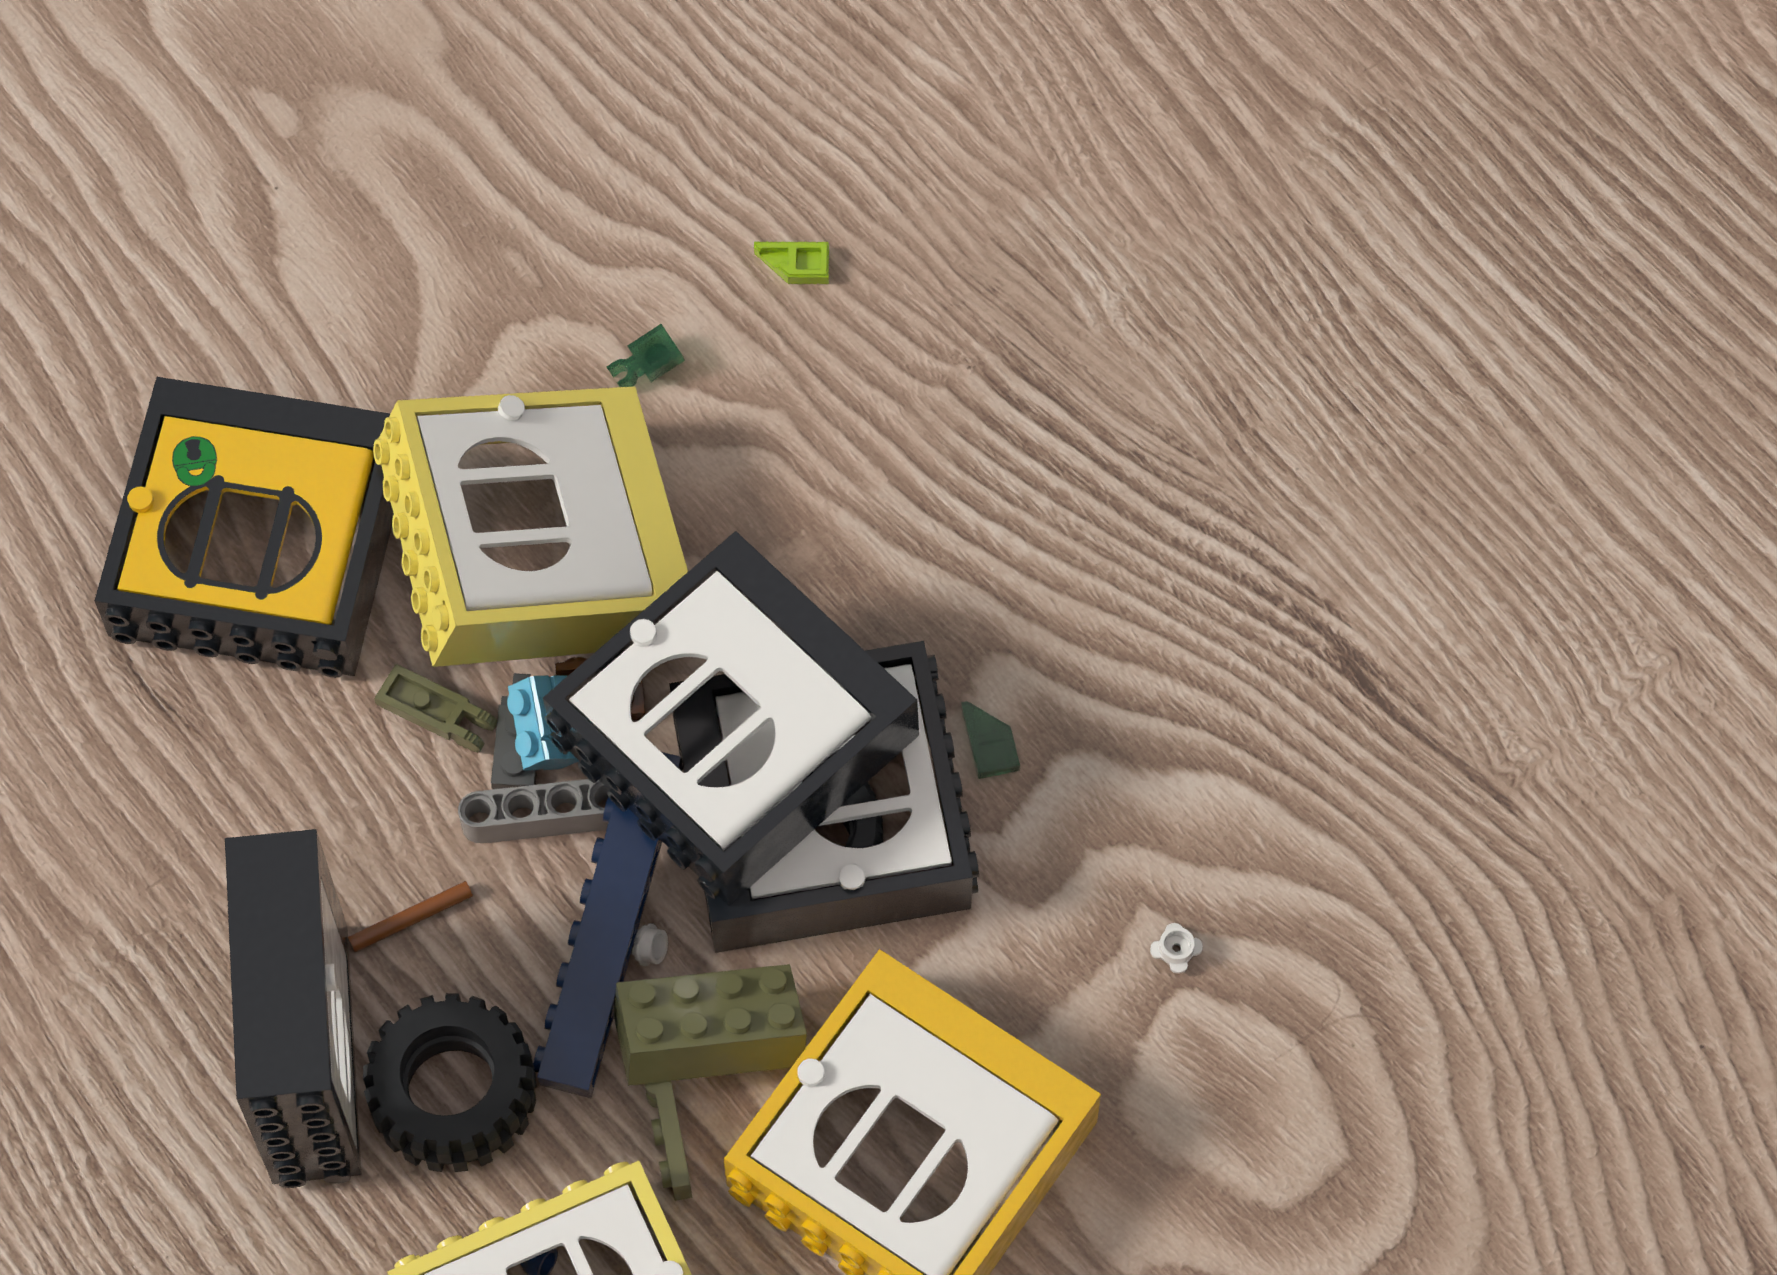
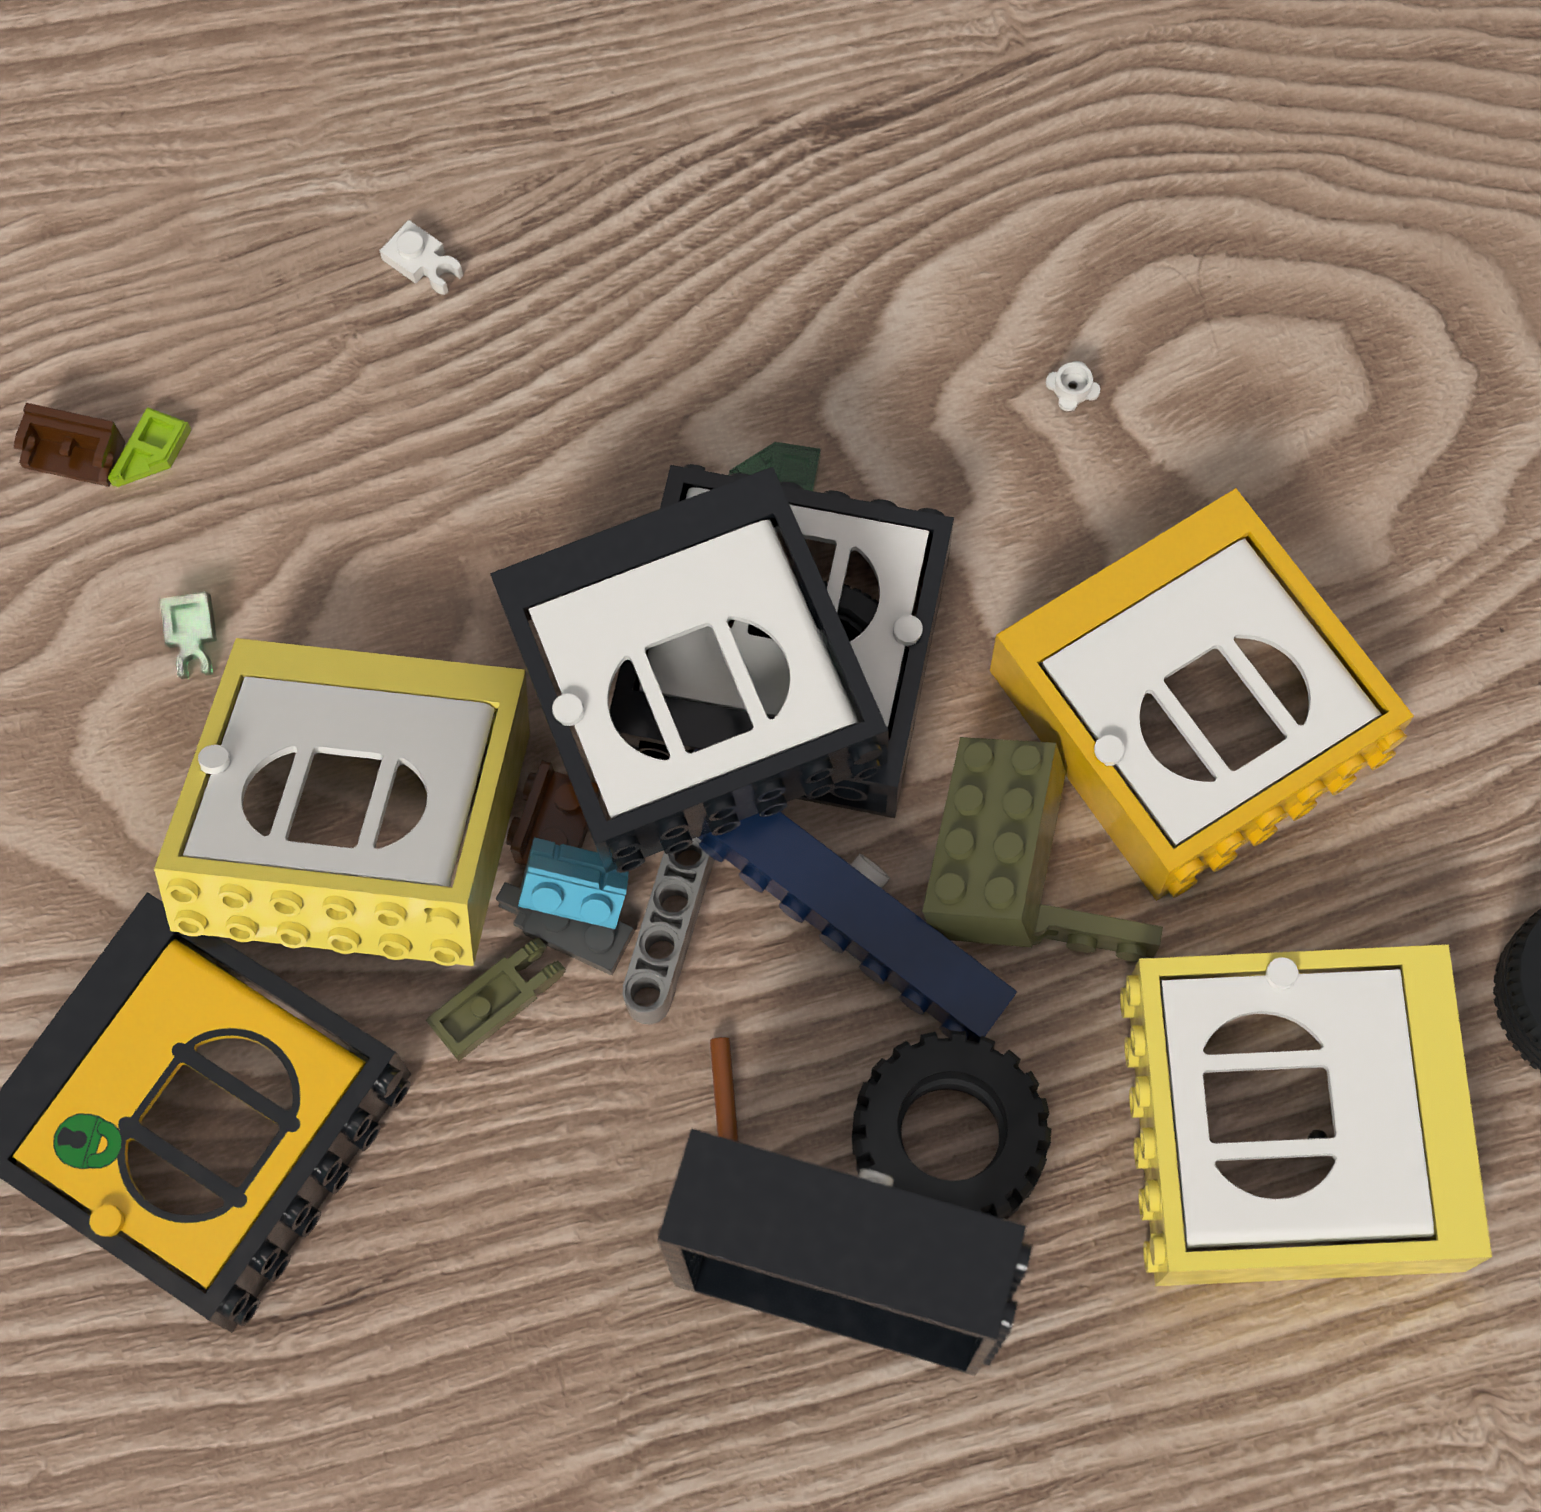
camera: 65 degrees left, 5 degrees up
(768, 200) = (68, 444): none -> reddish brown hinge
(1060, 382) = (419, 254): none -> white plate

